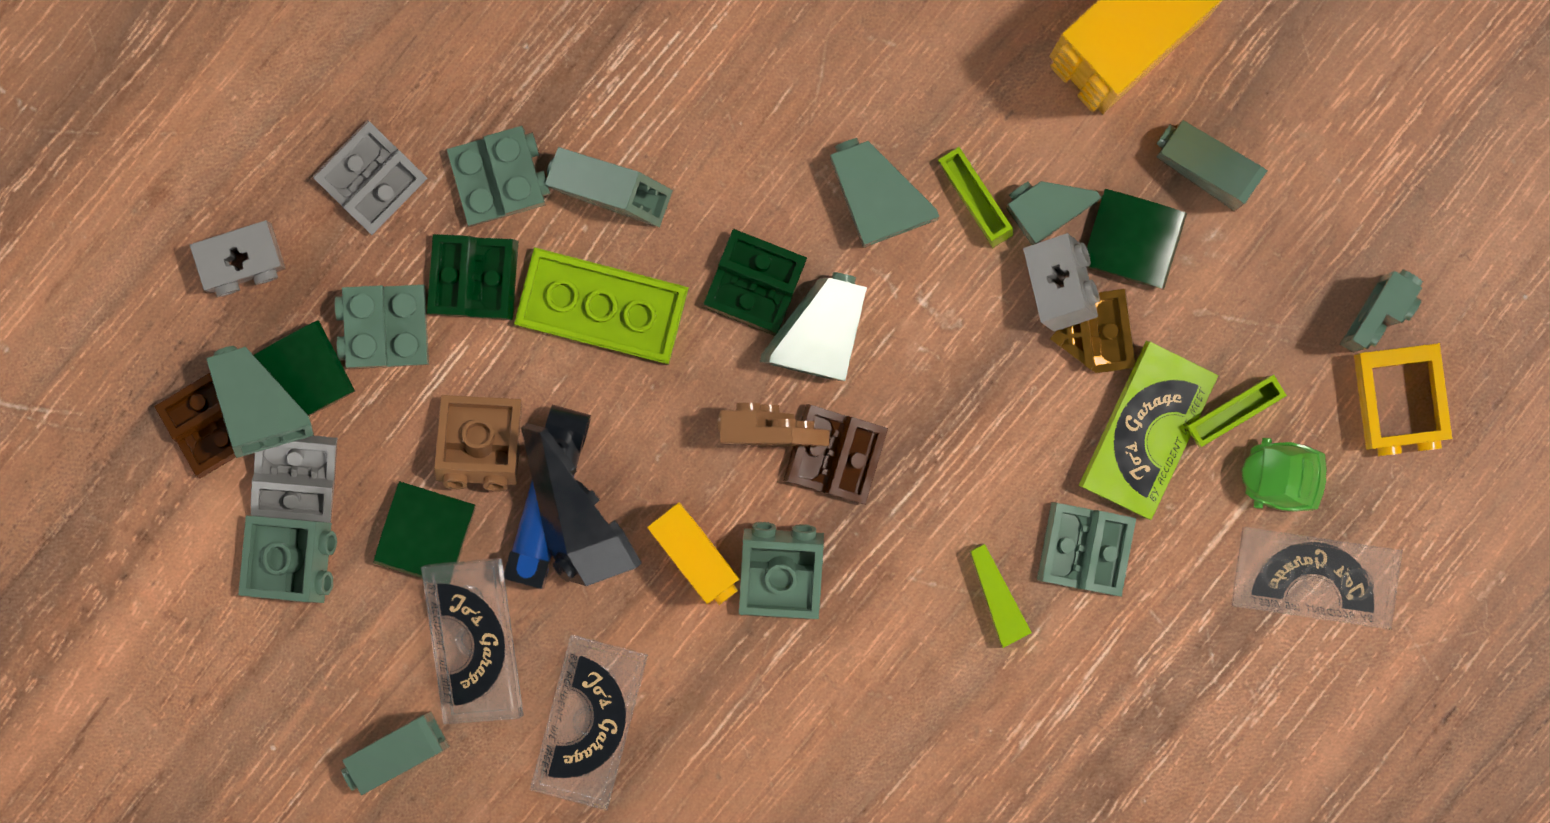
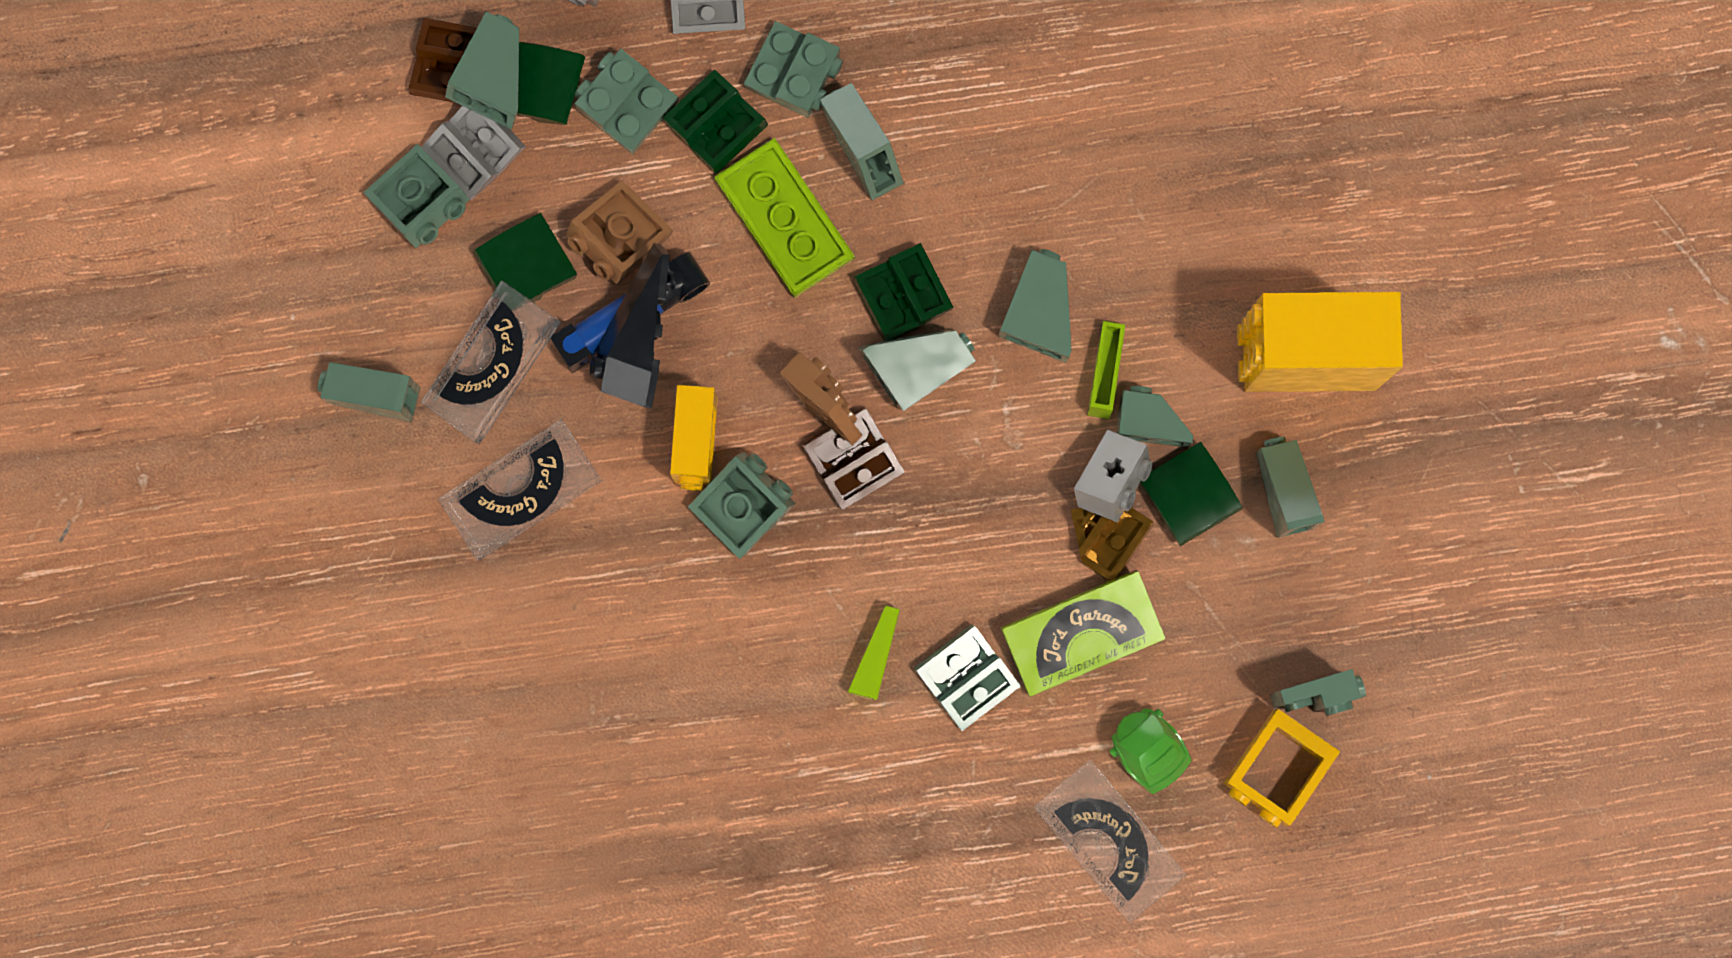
camera: 40 degrees right, 5 degrees down
(1236, 411) = (1156, 673): lime piece -> none

